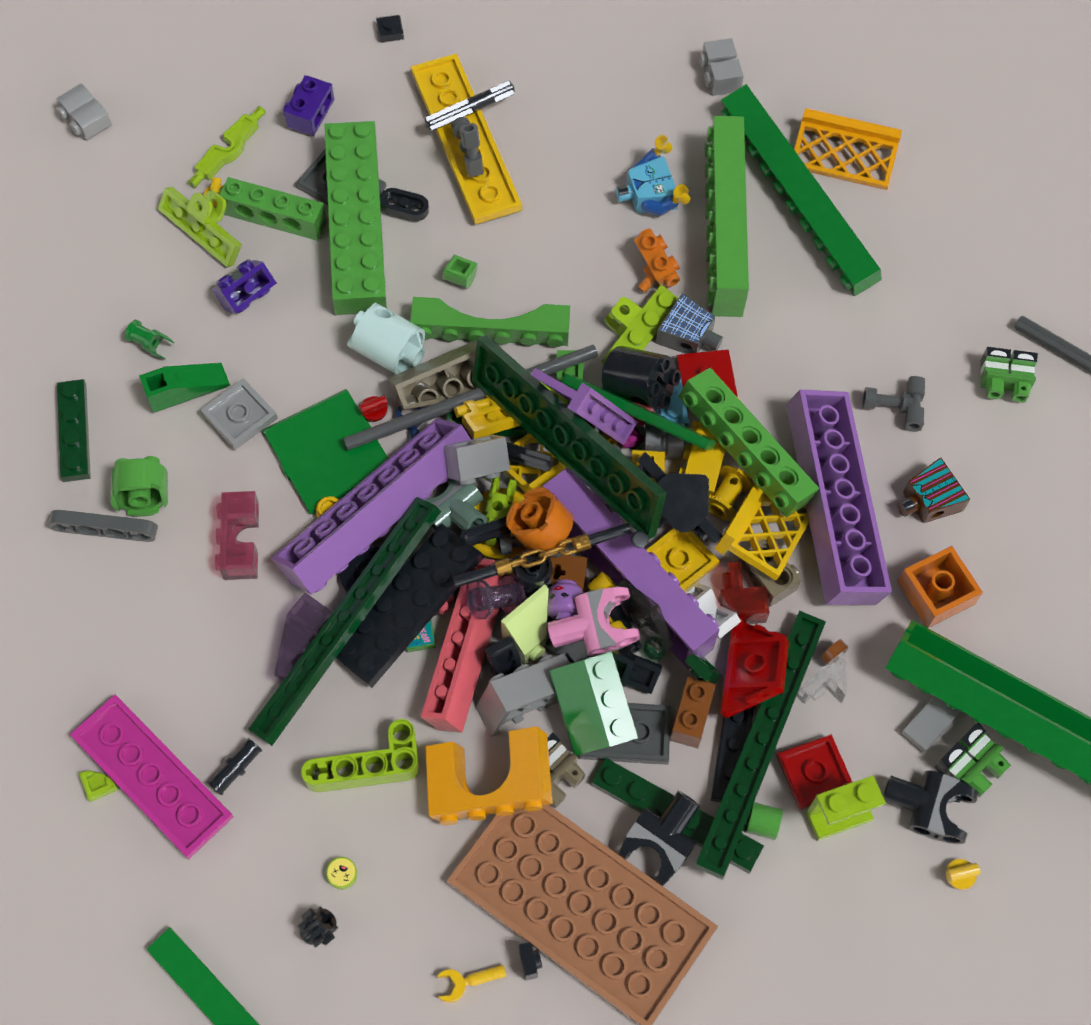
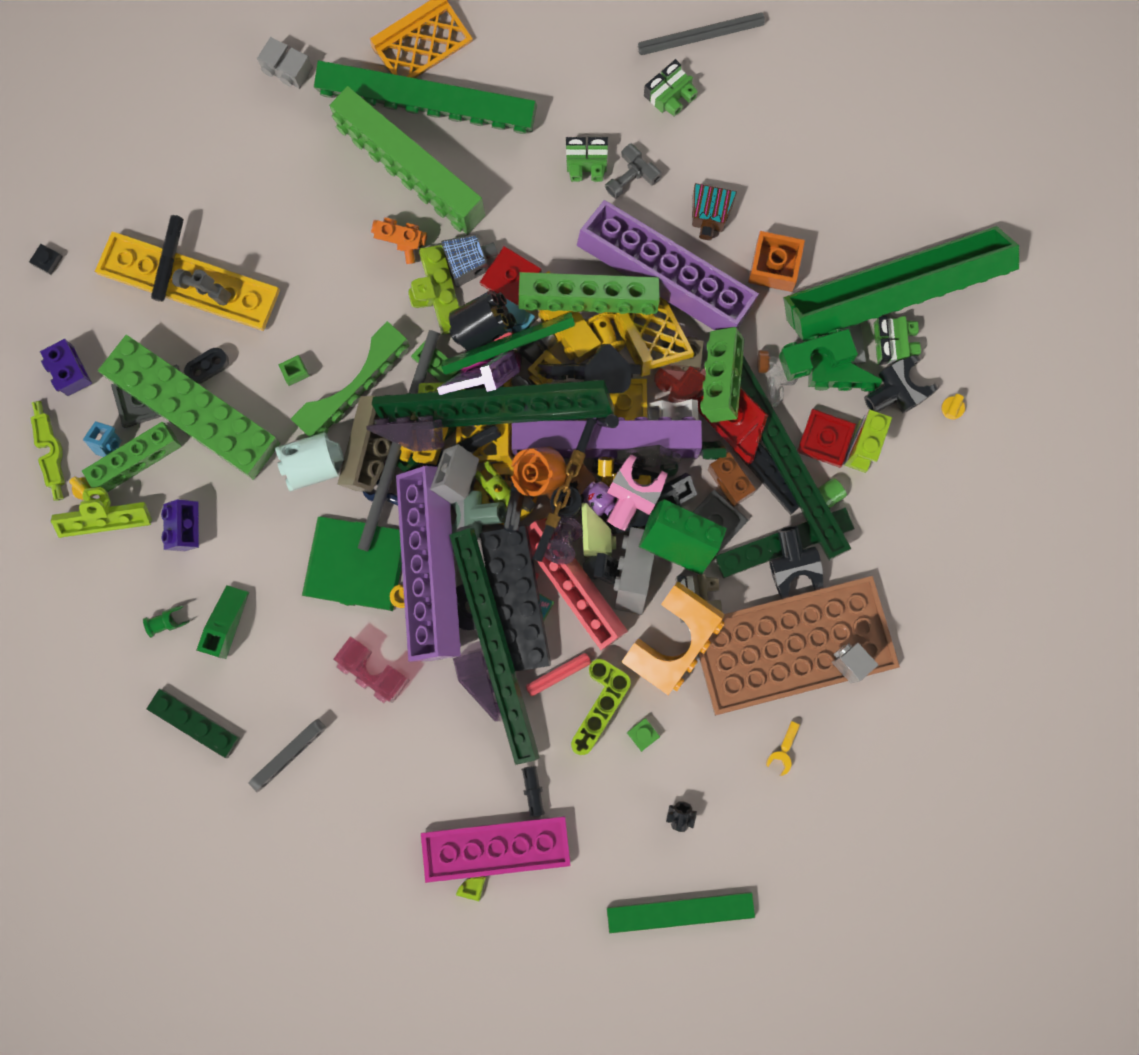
camera: 45 degrees left, 15 degrees up
(139, 486) = (280, 710): bright green brick -> none
(239, 414) = (278, 602): light grey plate -> none
(270, 178) = (108, 443): none -> dark azure brick
(342, 873) = (656, 775): light yellow tile -> none
(366, 702) = (558, 674): none -> coral axle
(372, 828) = (643, 734): none -> bright green plate
(374, 408) = (350, 509): red plate -> none
(480, 394) = (414, 435): none -> clear purple slope
(530, 960) = (803, 703): black plate -> none
(609, 968) = (854, 662): none -> light grey brick
(652, 184) = (338, 189): torso -> none
(783, 619) = (723, 375): none -> bright green brick
(875, 353) = (577, 161): none -> bright green hips
(887, 729) = (841, 377): none -> green slope
(907, 698) = (835, 346): none -> green arch

